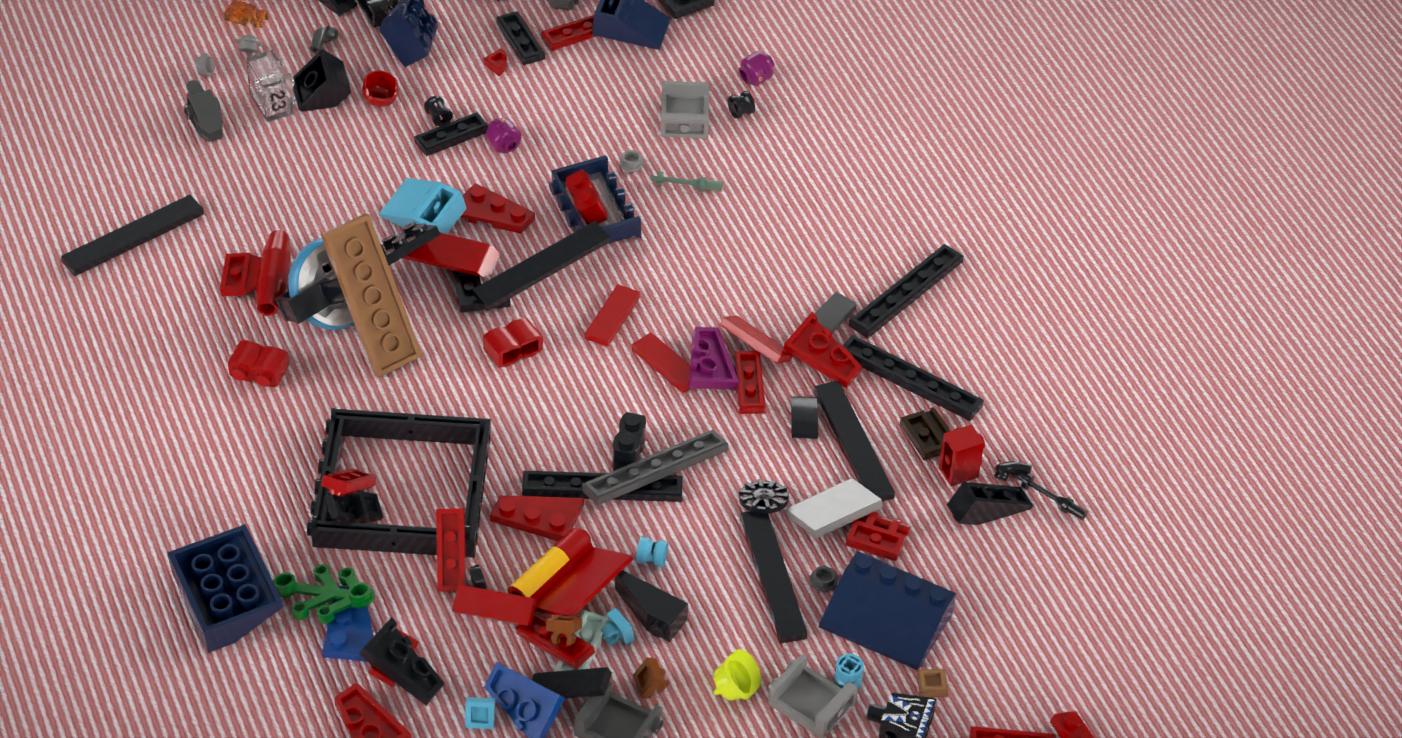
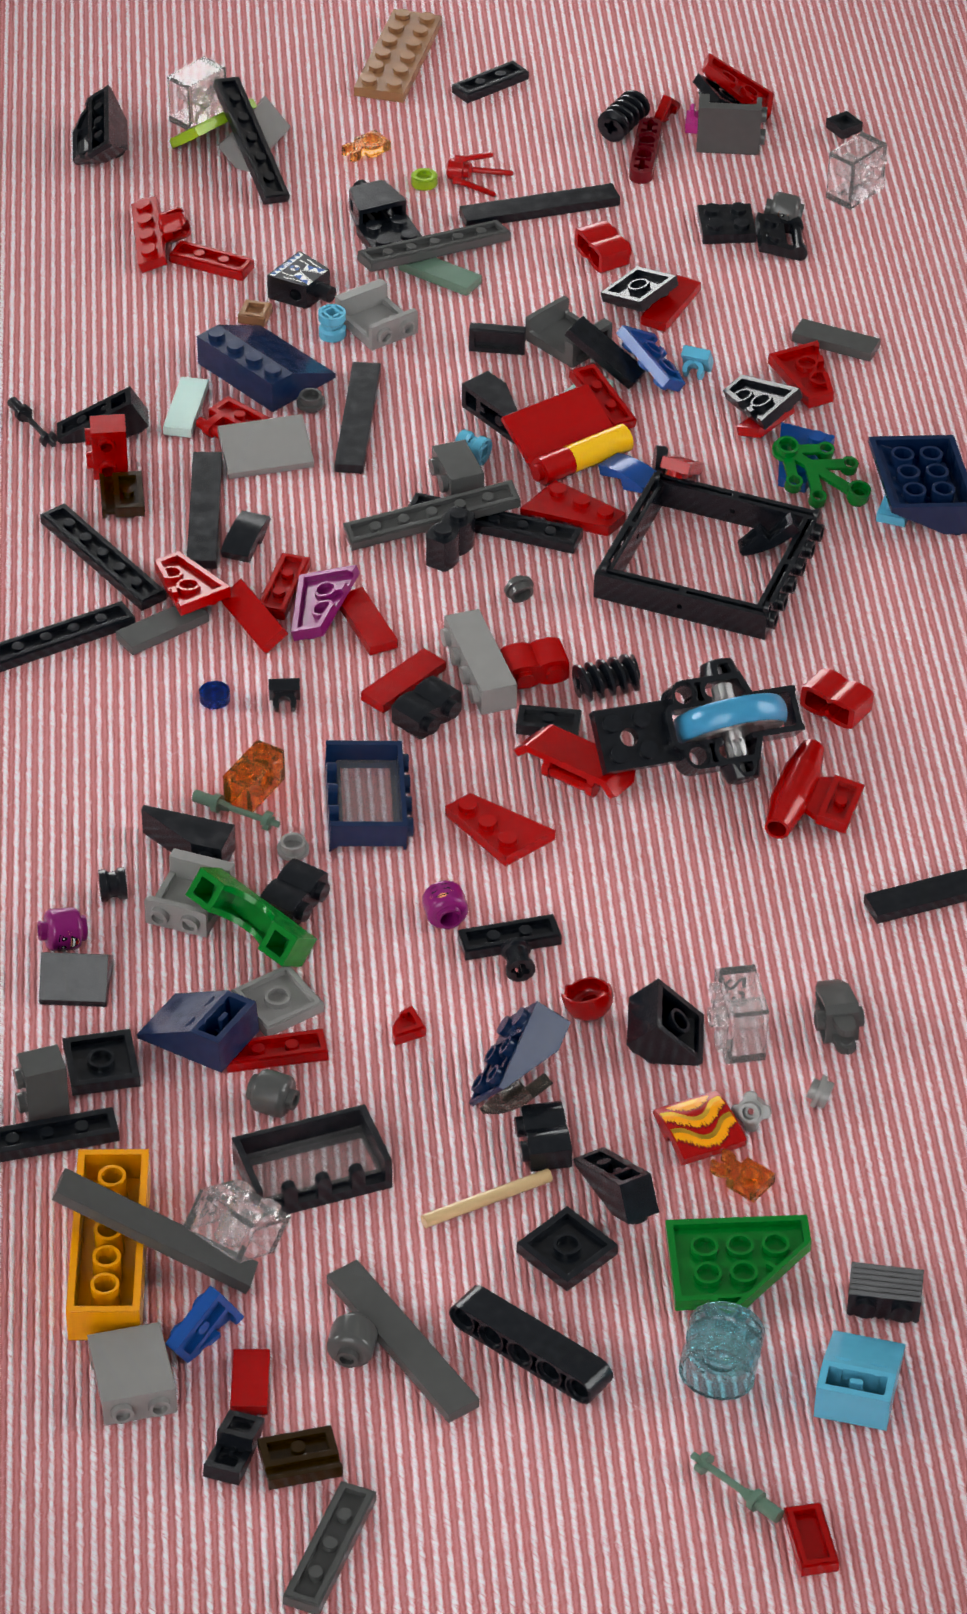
camera: 160 degrees left, 5 degrees down
(280, 31) = (700, 1127): none -> slope
(322, 36) = (644, 1107): dark grey arm -> none
(348, 481) = (769, 540): red plate -> none
(371, 295) = (694, 650): medium nougat plate -> none
(425, 203) = (585, 817): medium azure slope -> none
(448, 336) = (606, 676): none -> black piece
(494, 605) = (652, 428): red tile -> none
(501, 560) = (631, 471): none -> blue slope
(520, 38) = (360, 1056): black tile -> none
(540, 265) = (469, 716): black tile -> none
(552, 412) = (519, 588): none -> dark grey plate
(560, 335) = (479, 662): none -> light grey brick
(564, 625) = (595, 372): dark orange tile -> none
(581, 286) = (426, 707): none -> black brick
(586, 197) = (380, 777): red brick -> none
(591, 61) = (281, 1000): none -> light grey tile
(612, 123) = (297, 890): none -> black brick
(617, 629) = (535, 391): medium azure tile -> none
(650, 678) = (522, 355): dark orange tile -> none
(652, 512) = (455, 468): none -> dark grey brick
(657, 91) = (275, 932): none -> green arch
(683, 198) = (254, 776): none -> clear orange brick
(683, 691) = (497, 338): none -> black tile
(698, 276) = (284, 689): none -> black tile
(704, 146) = (189, 832): none -> black slope
(730, 48) = (75, 979): none -> slope
(737, 676) = (447, 335): neon yellow piece -> none
(751, 271) = (214, 695): none -> clear blue tile
(763, 497) = (331, 475): black wheel -> none
(931, 549) = (185, 407): none -> light aqua tile
(1012, 467) = (58, 453): black arm -> none

